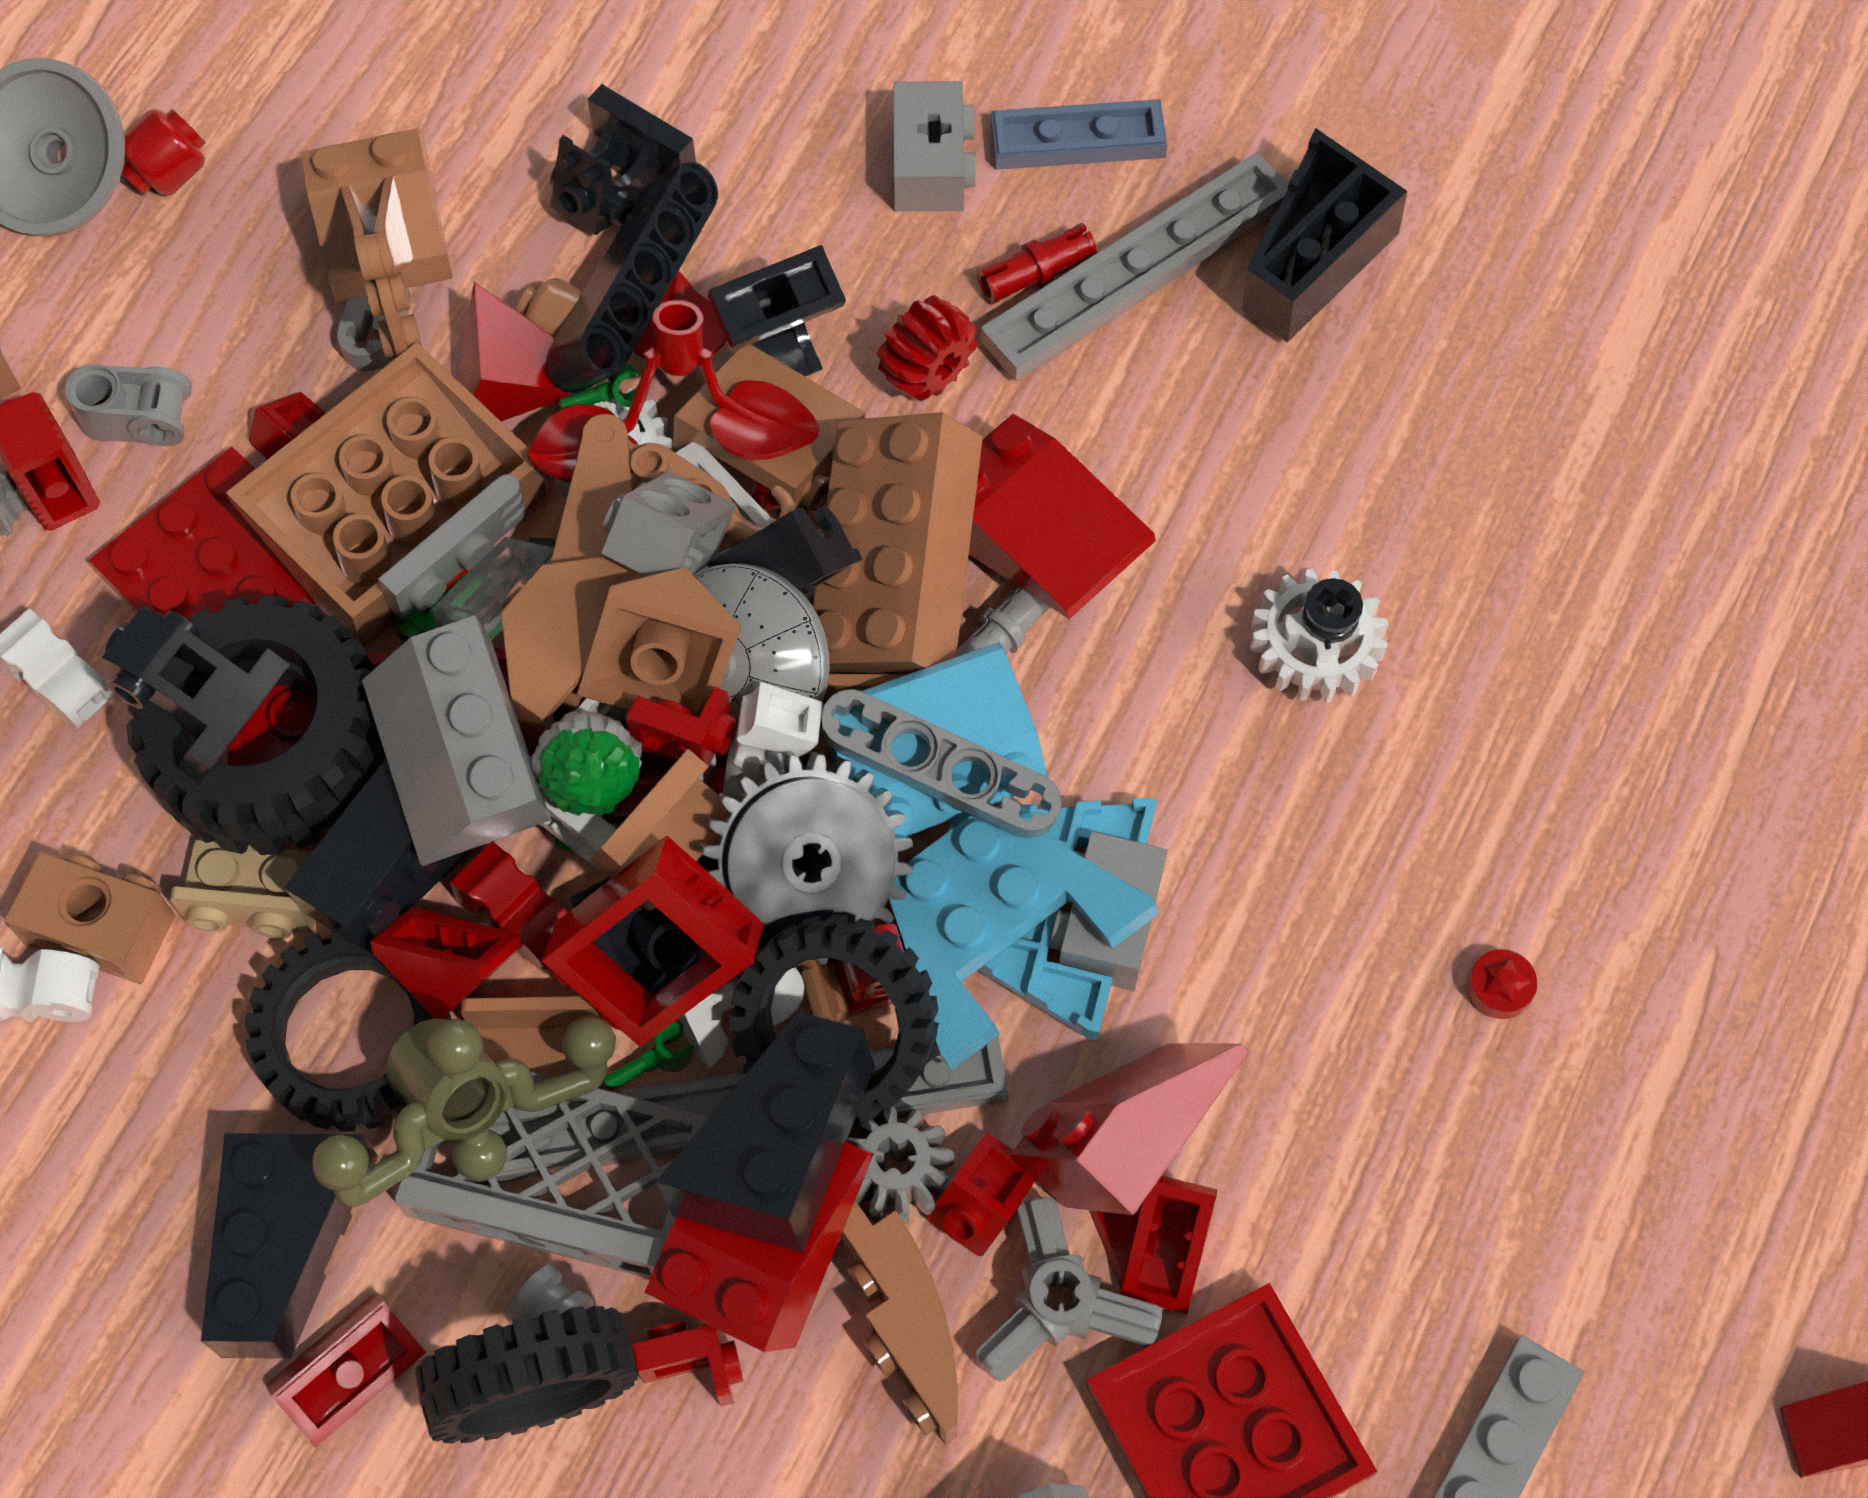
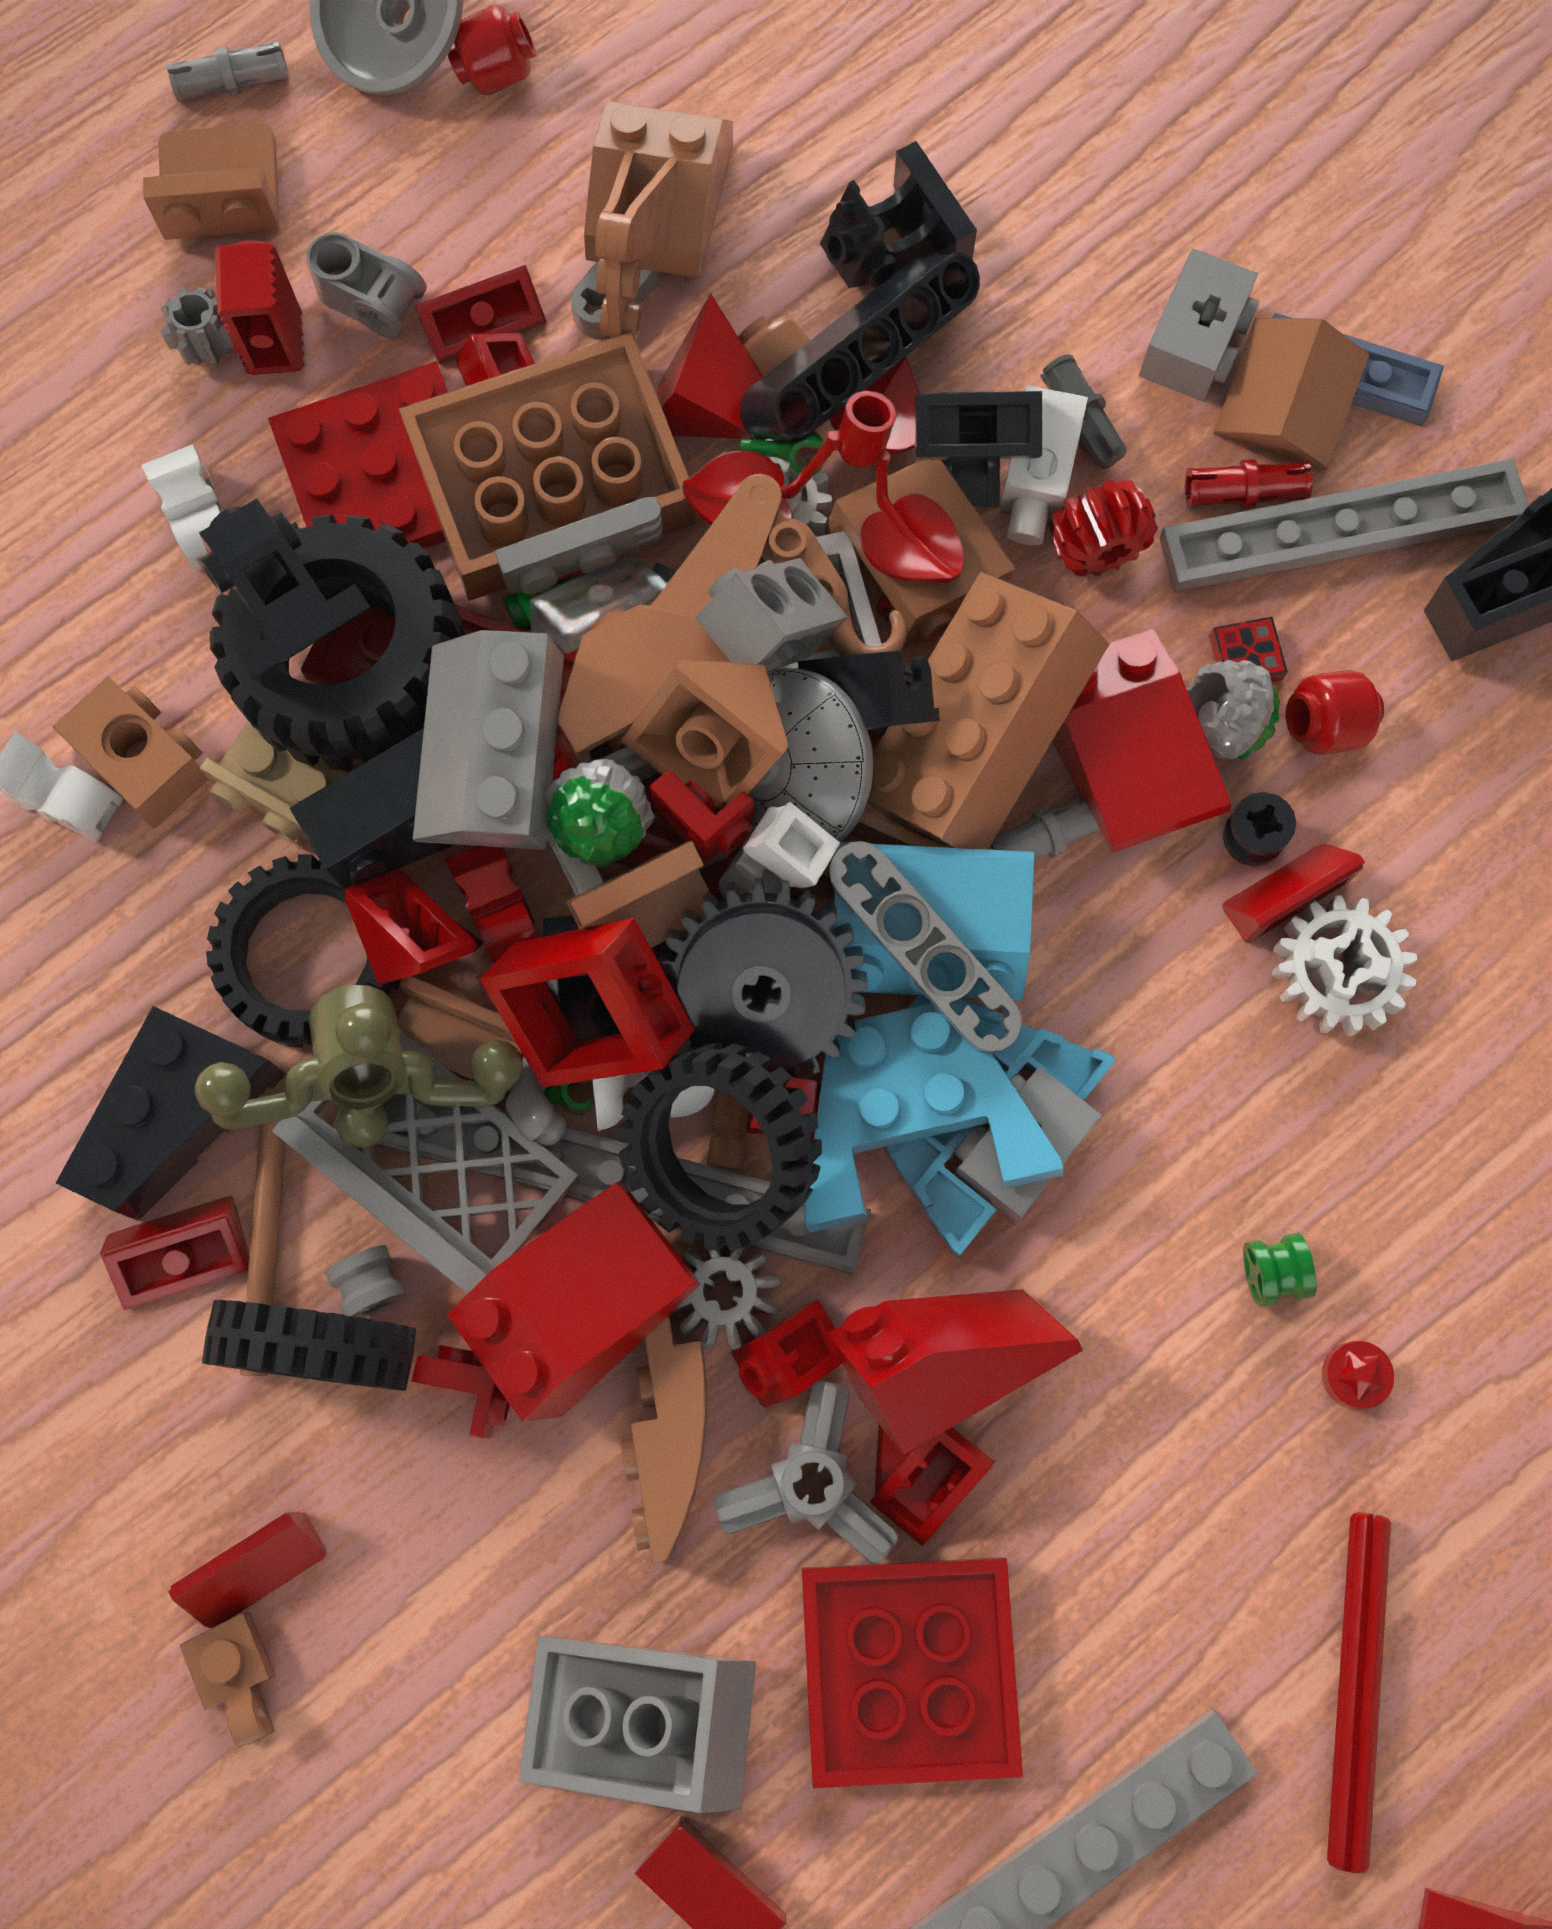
camera: 25 degrees right, 10 degrees up
(263, 376) = (487, 307): none -> red slope
(415, 1284) = (265, 1220): none -> nougat bar
(638, 1075) = (533, 1111): none -> light grey arm
(775, 1137) = (615, 1237): black wedge -> none
(853, 333) = (1040, 485): none -> white torso
(861, 258) = (1096, 431): none -> dark grey axle
(1038, 167) = (1293, 389): none -> nougat slope
(1106, 407) = (1252, 642): none -> tile
(1118, 451) = (1235, 707): none -> light grey piece
(1175, 558) = (1250, 841): none -> black wheel
(1206, 424) = (1334, 712): none -> red head
(1241, 592) = (1291, 889): none -> red slope
(1330, 593) = (1371, 935): black bush -> none
(1389, 920) = (1279, 1269): none -> green wheel
(1638, 1261) = (1359, 1693): none -> red axle

